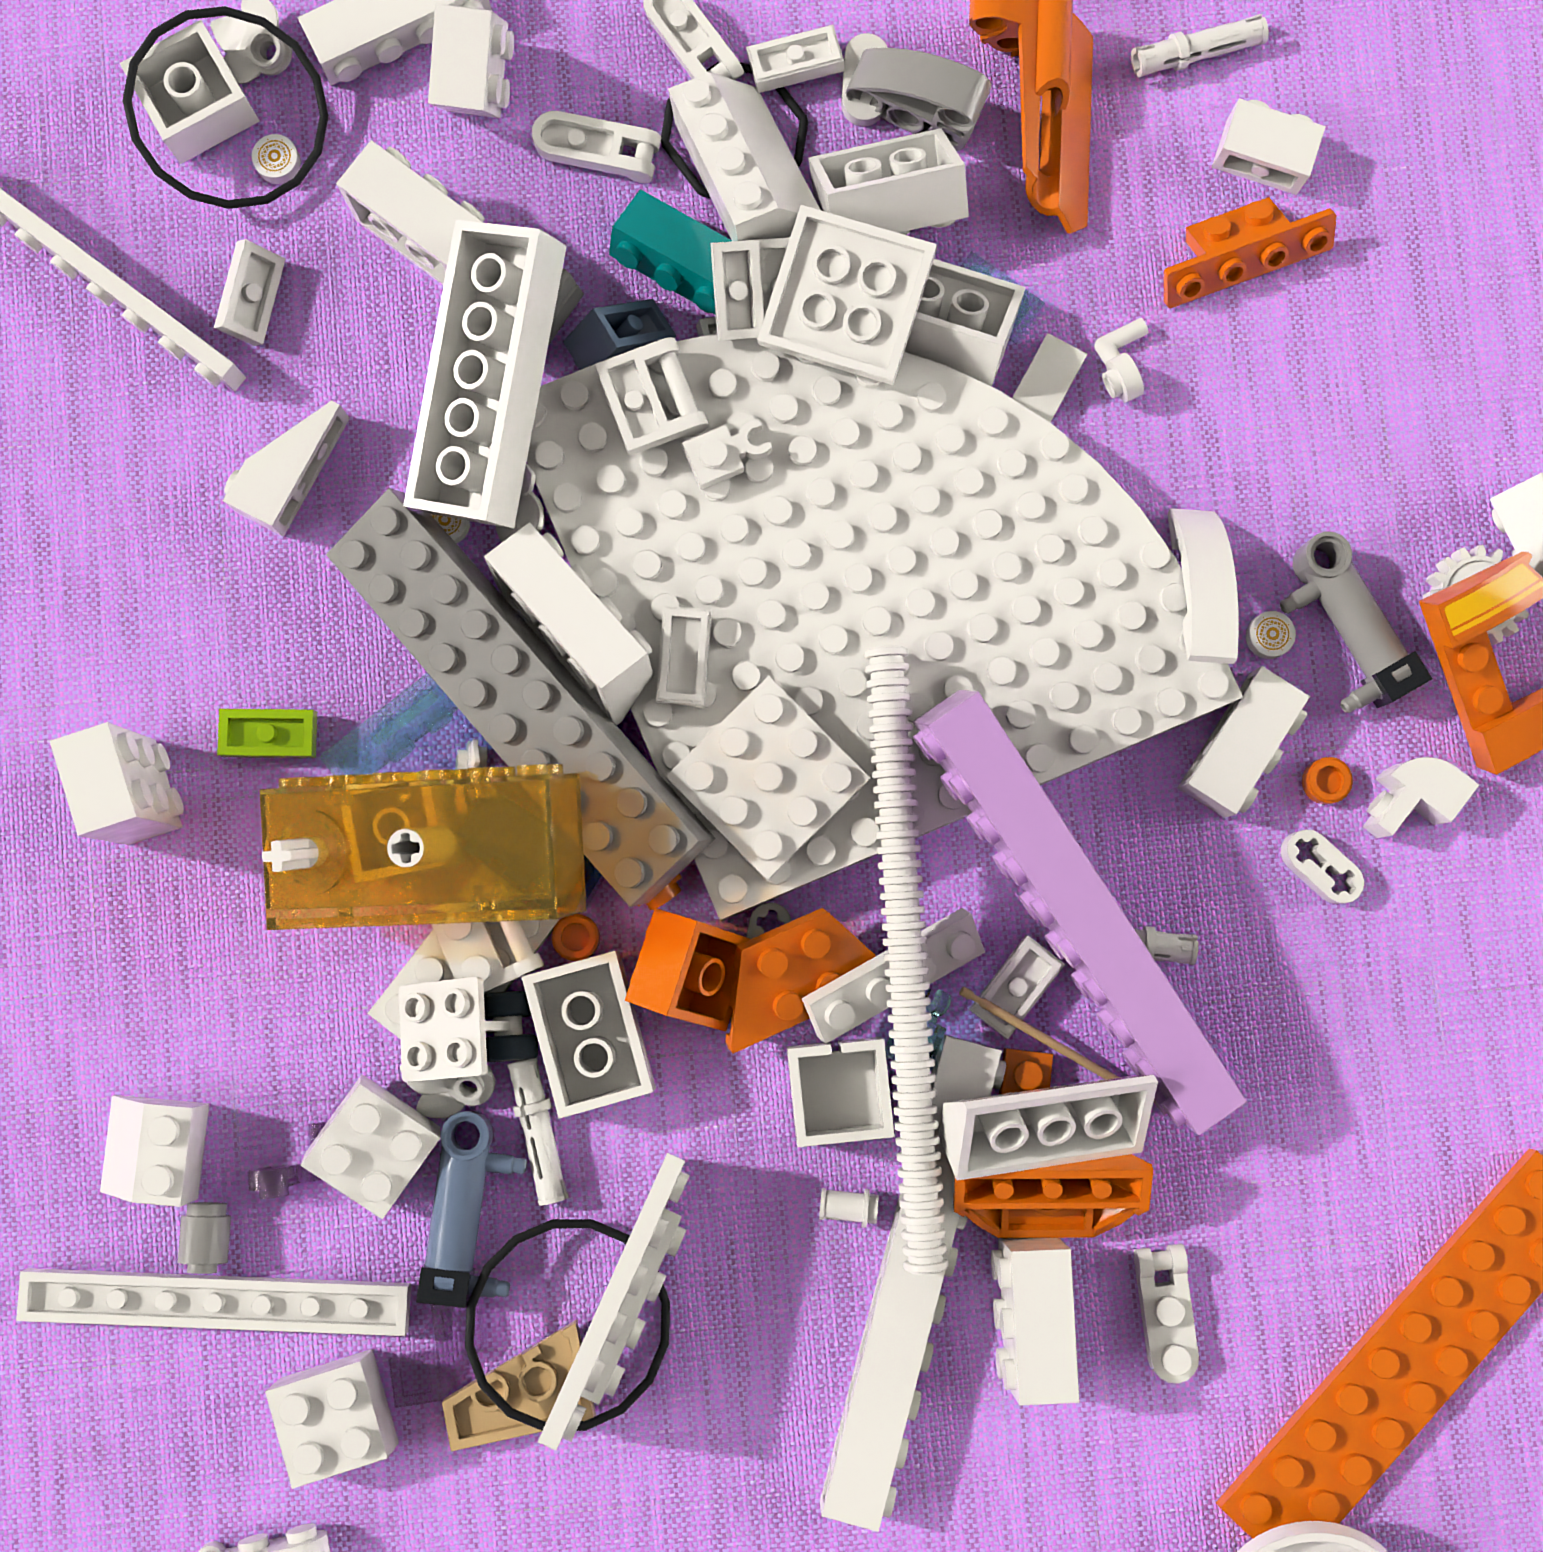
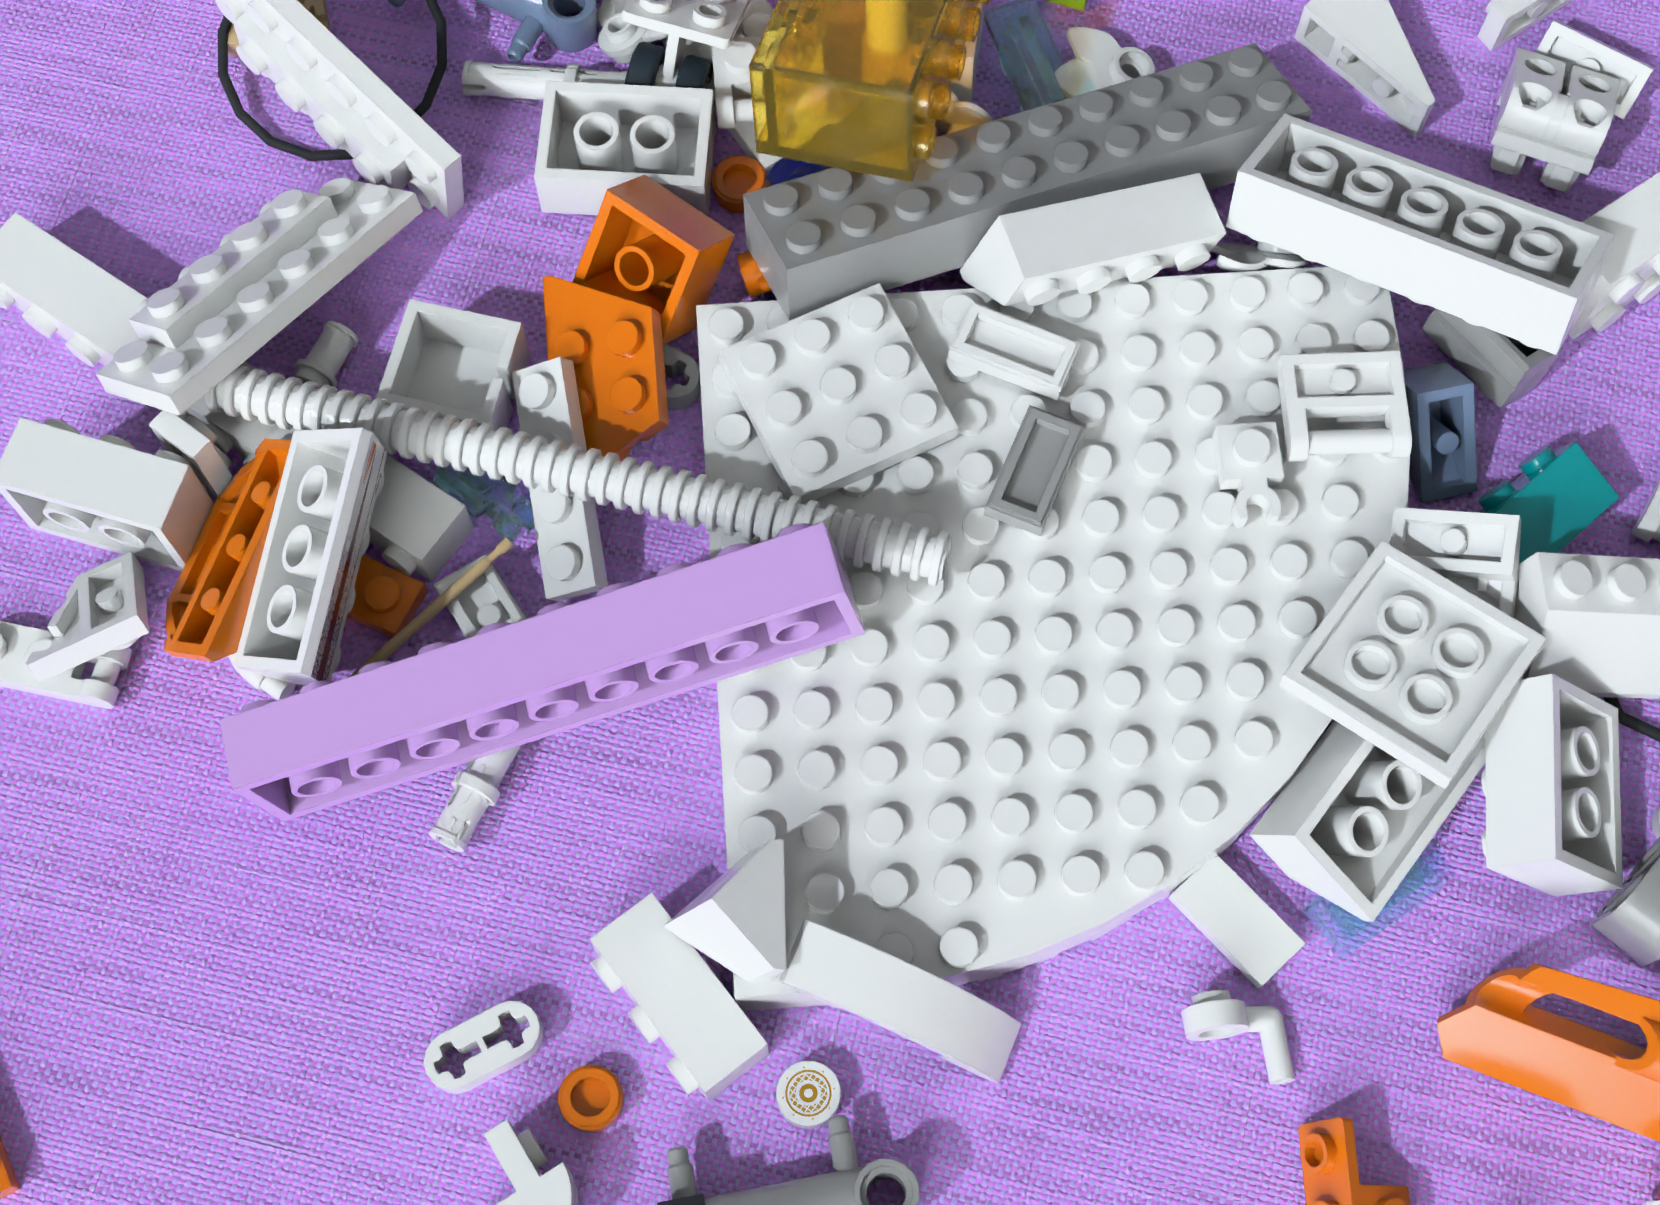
camera: 115 degrees right, 15 degrees down
(314, 308) = (1552, 121): none -> white hips
(381, 681) = (1099, 62): none -> white plate
(779, 610) = (1034, 470): none -> light grey tile
(830, 1275) = (251, 289): none -> white plate
(979, 1263) = (196, 444): none -> white plate
(1130, 1281) = (100, 614): none -> white wing
(1194, 706) = (741, 916): none -> white slope

